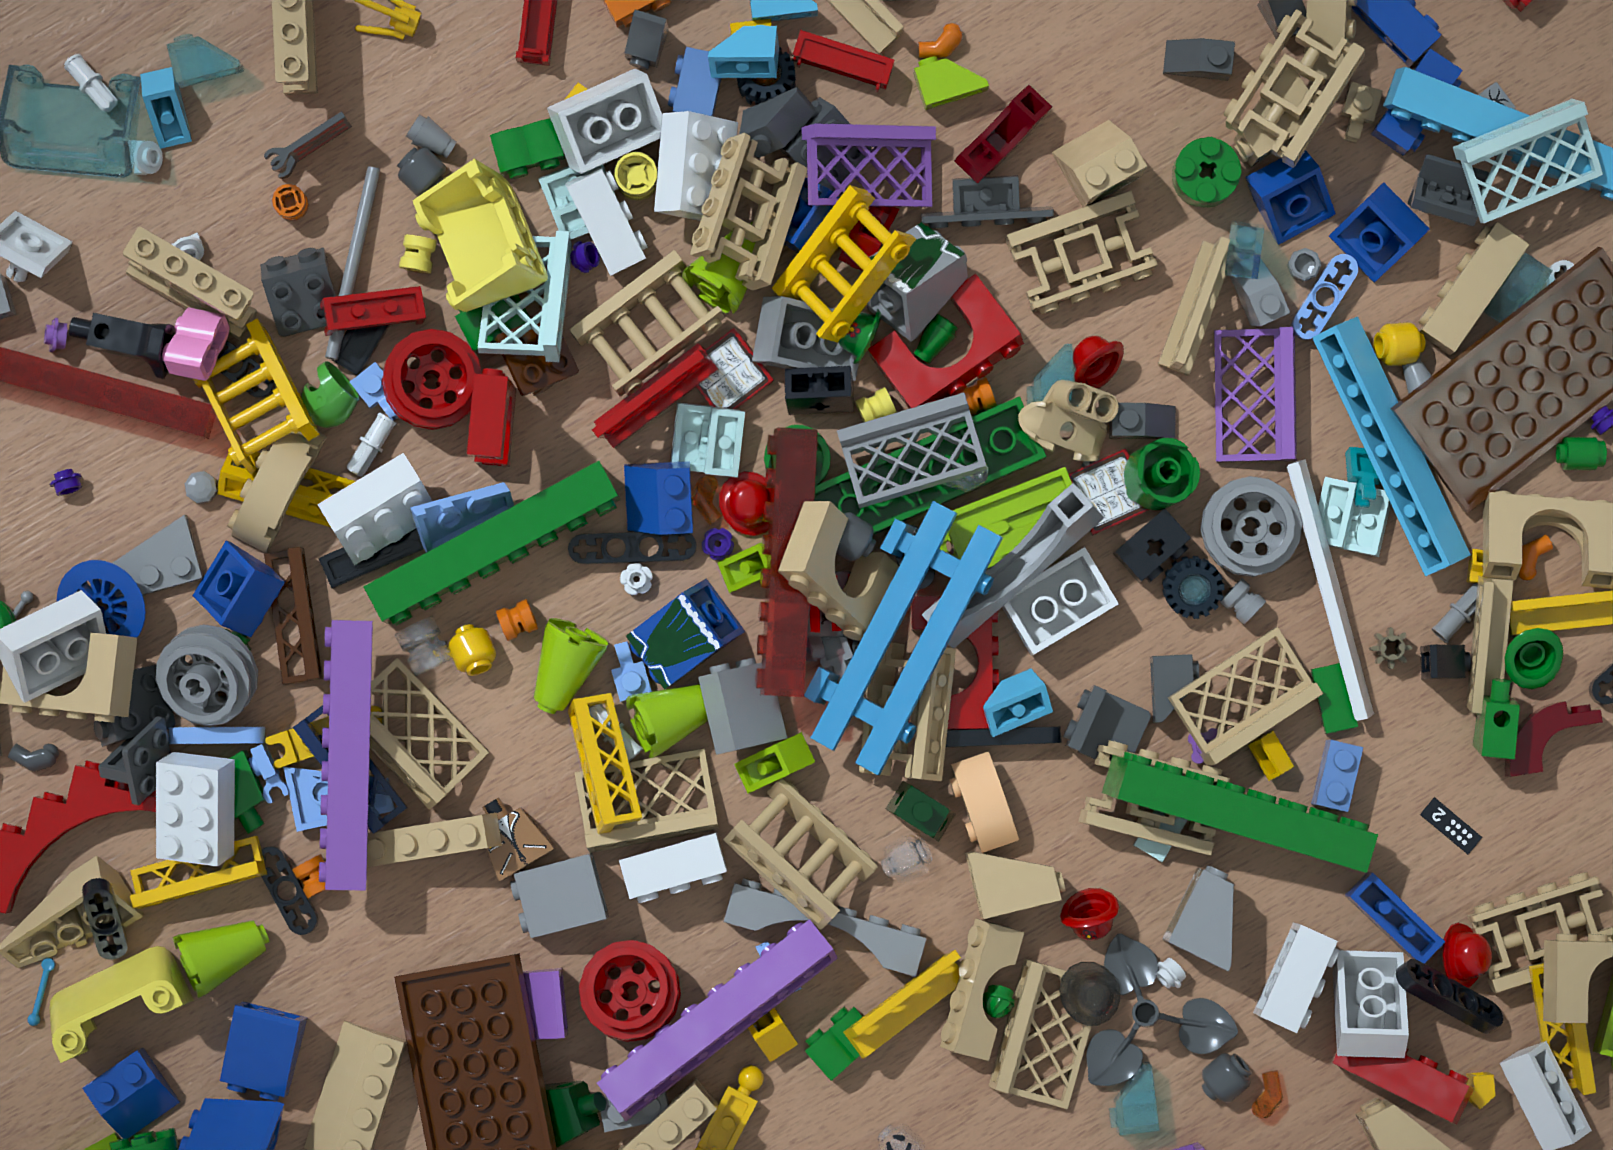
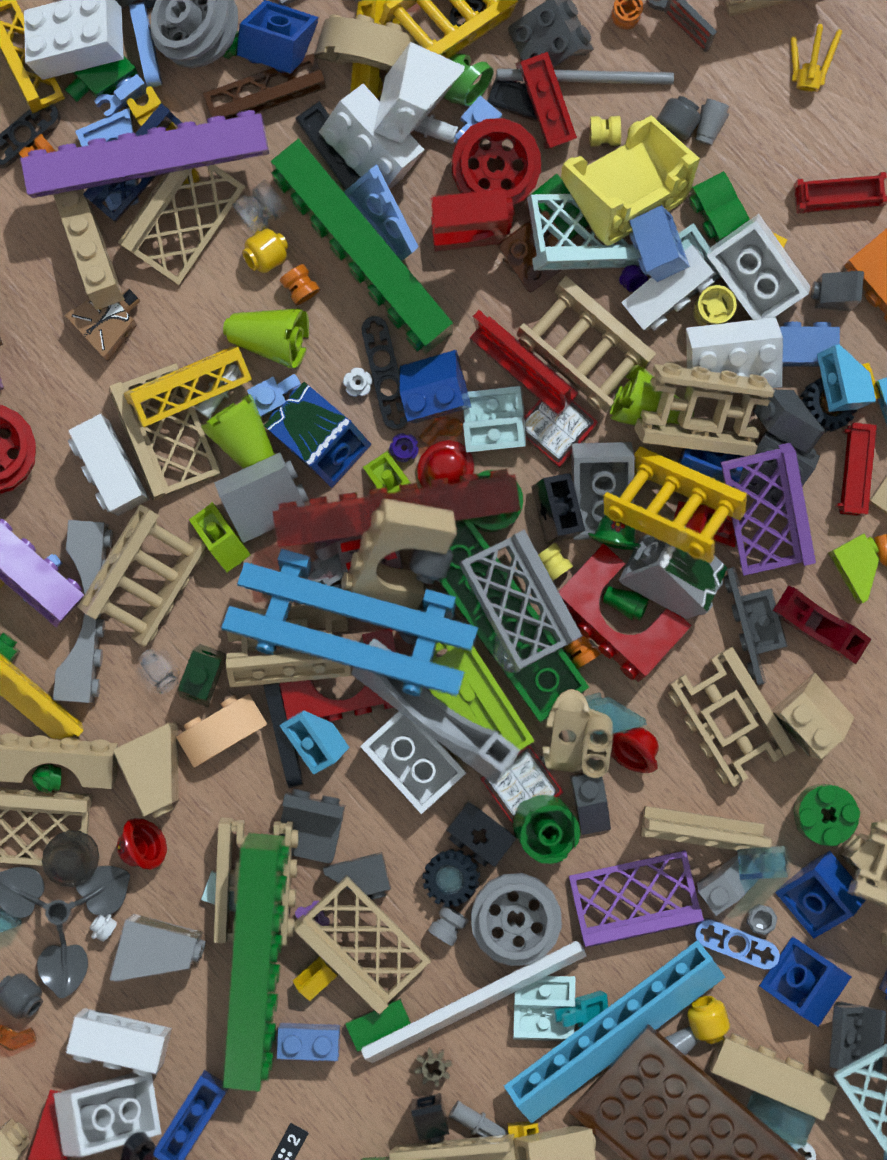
camera: 80 degrees right, 0 degrees up
(339, 451) = (413, 90): none -> white slope
(558, 222) = (658, 244): none -> medium blue brick
(559, 896) = (63, 373): light grey slope -> none

